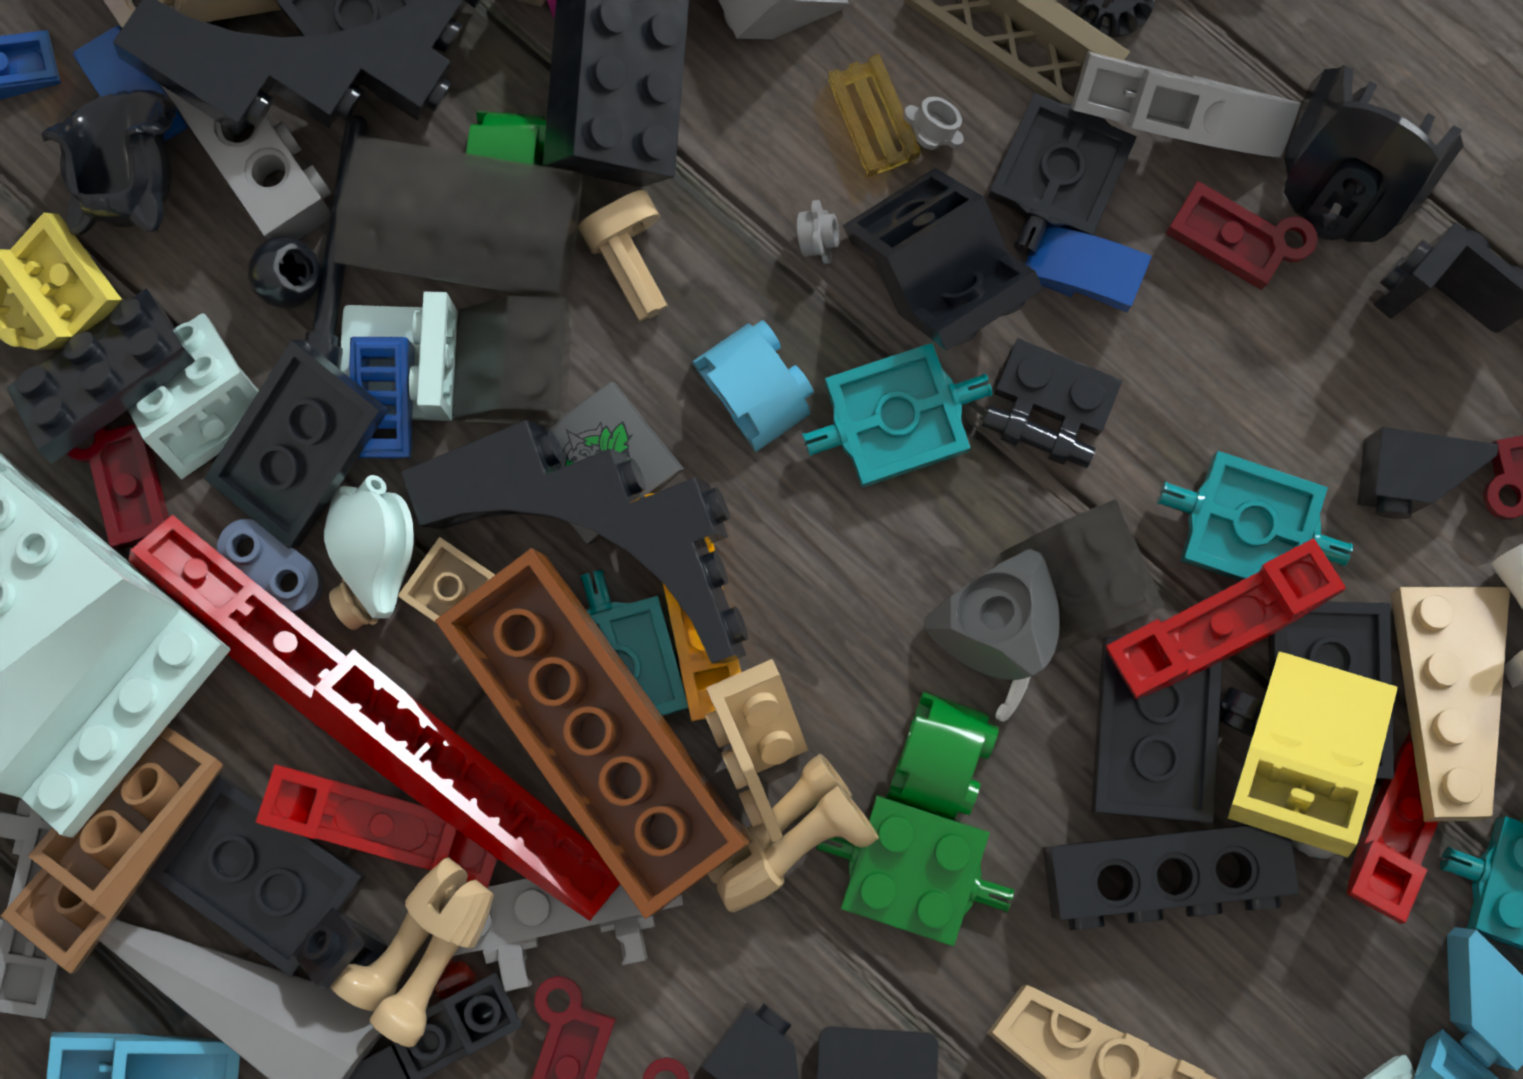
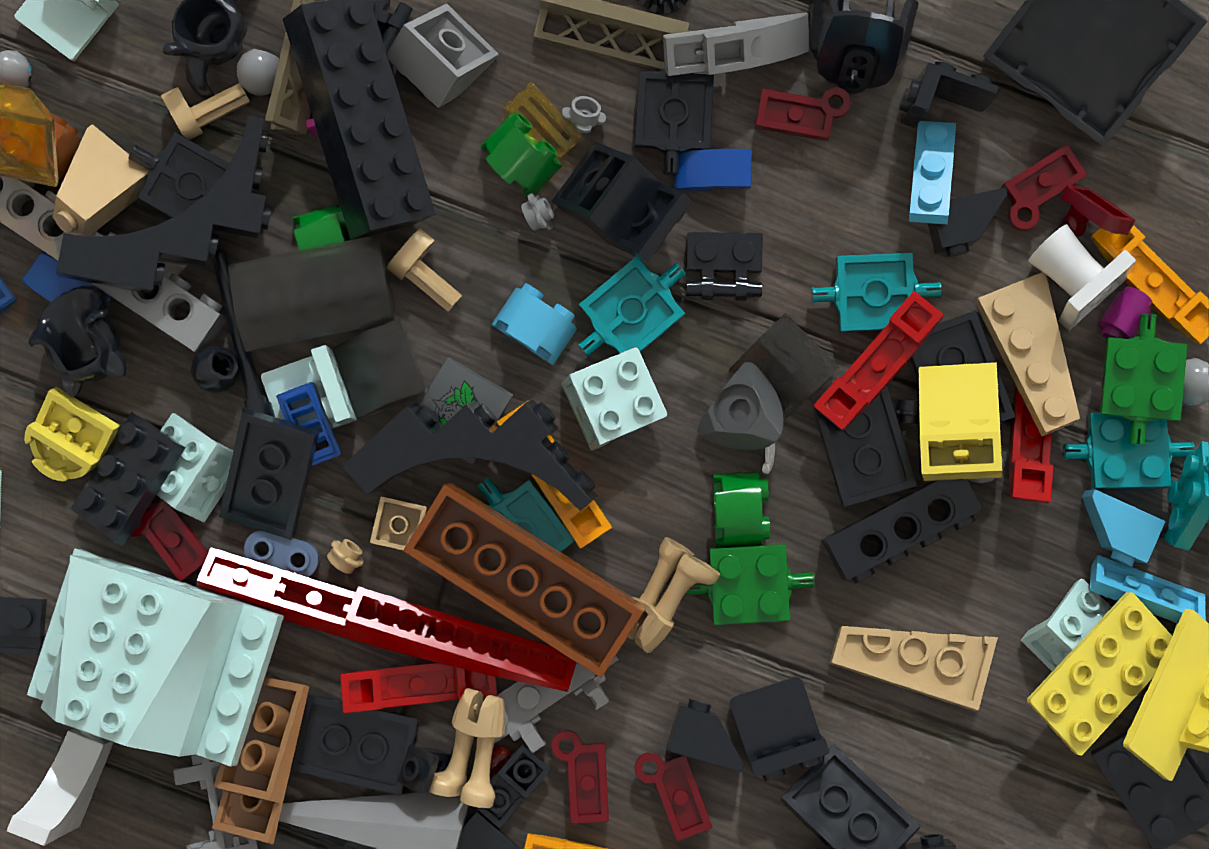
camera: 20 degrees left, 5 degrees up
(370, 542) = (340, 516): light aqua hat -> none
(762, 732) = (625, 537): tan bracket -> none
(823, 145) = (519, 156): none -> green cylinder
(823, 526) = (613, 398): none -> light aqua bracket
(1398, 385) = (932, 172): none -> medium azure plate

